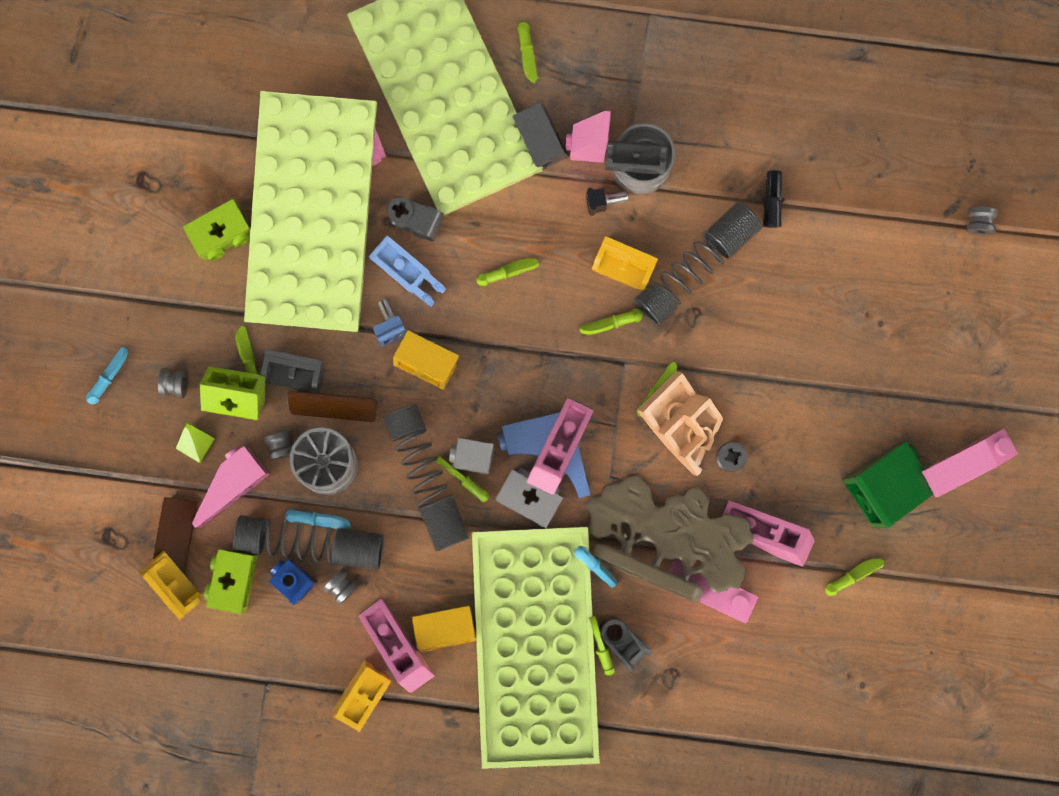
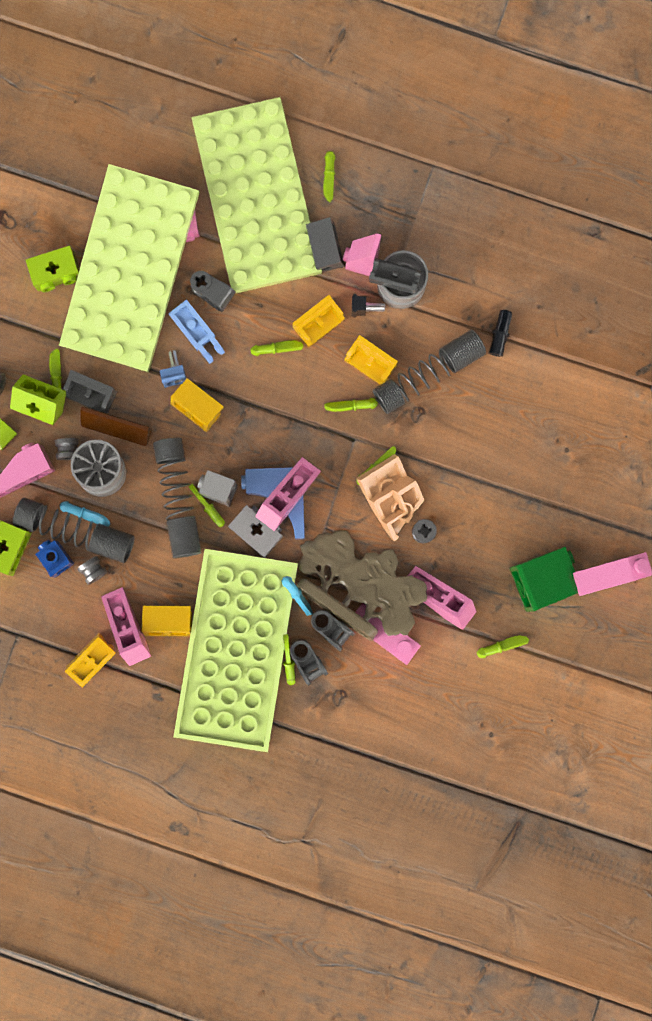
camera: 10 degrees right, 0 degrees up
(551, 229) = (318, 321): none -> yellow hinge
(648, 600) = (332, 630): none -> dark grey piece

